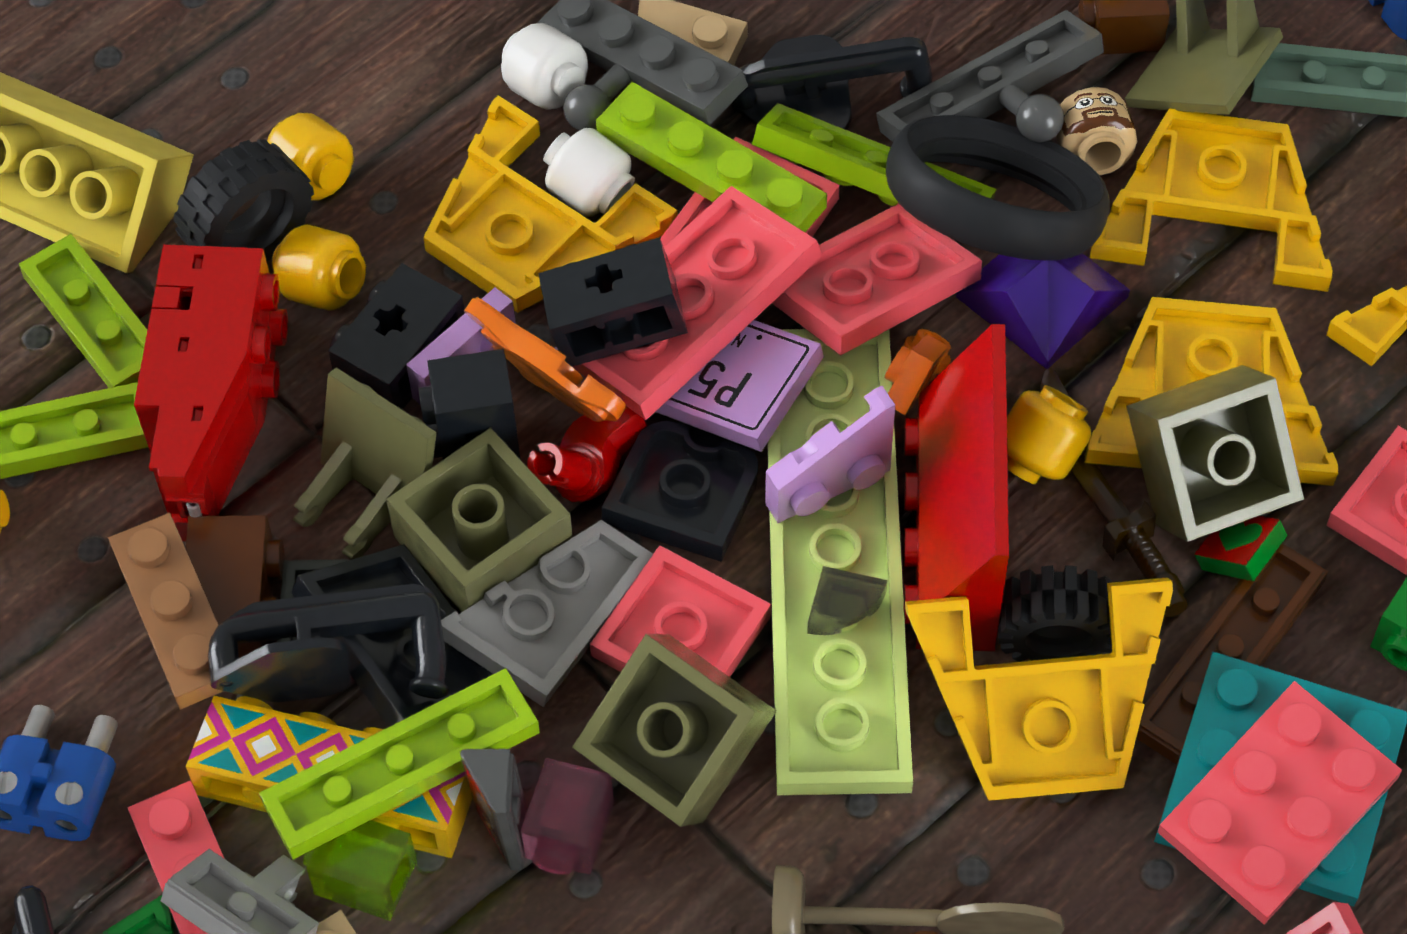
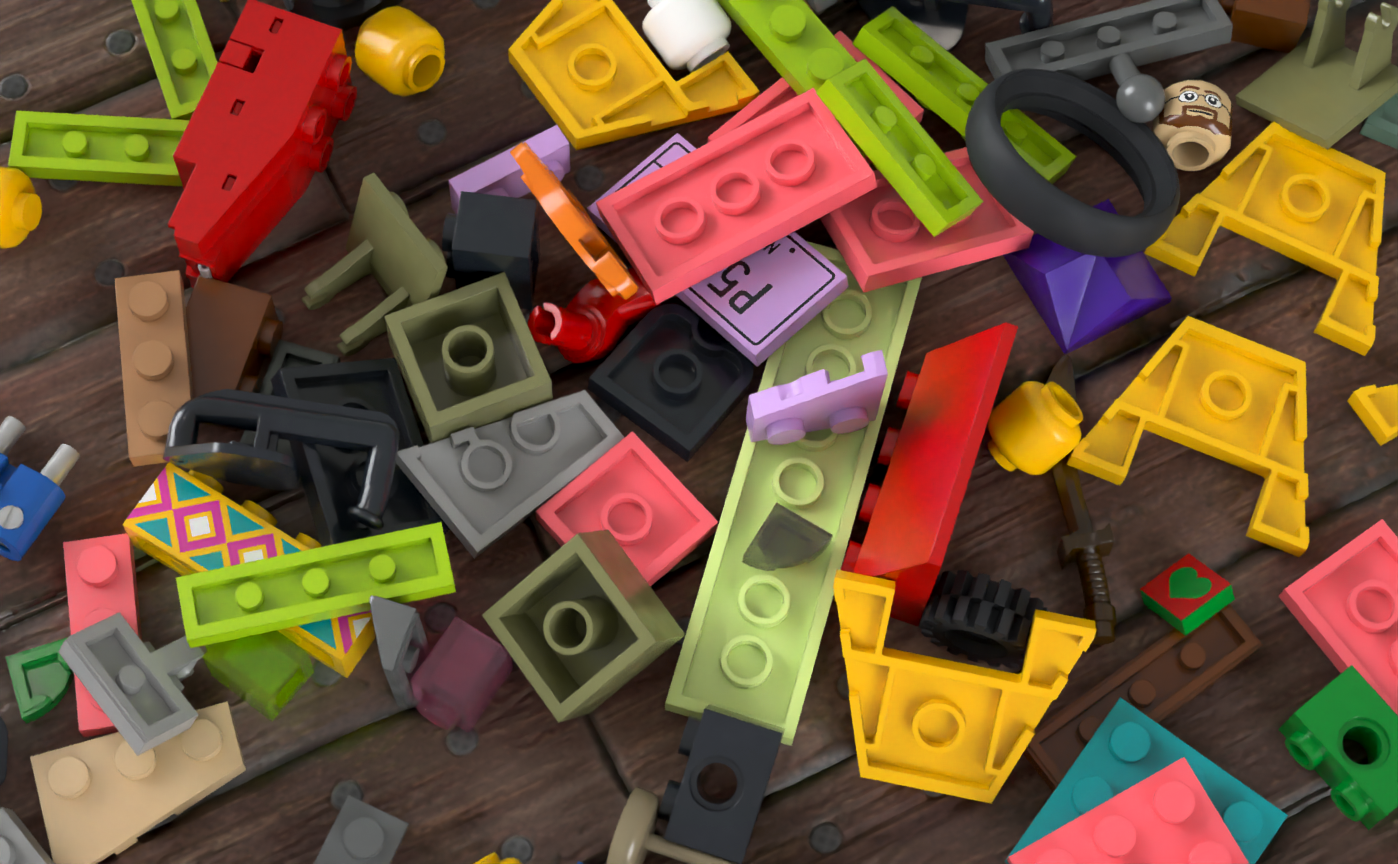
camera: 10 degrees right, 10 degrees up
(392, 329) = (447, 139): black brick -> none
(612, 302) = (657, 180): black brick -> none
(831, 214) = (899, 147): none -> lime plate
(878, 800) = (711, 823): none -> black brick
(916, 366) = (944, 312): orange plate -> none
(1215, 452) = (1191, 499): olive brick -> none

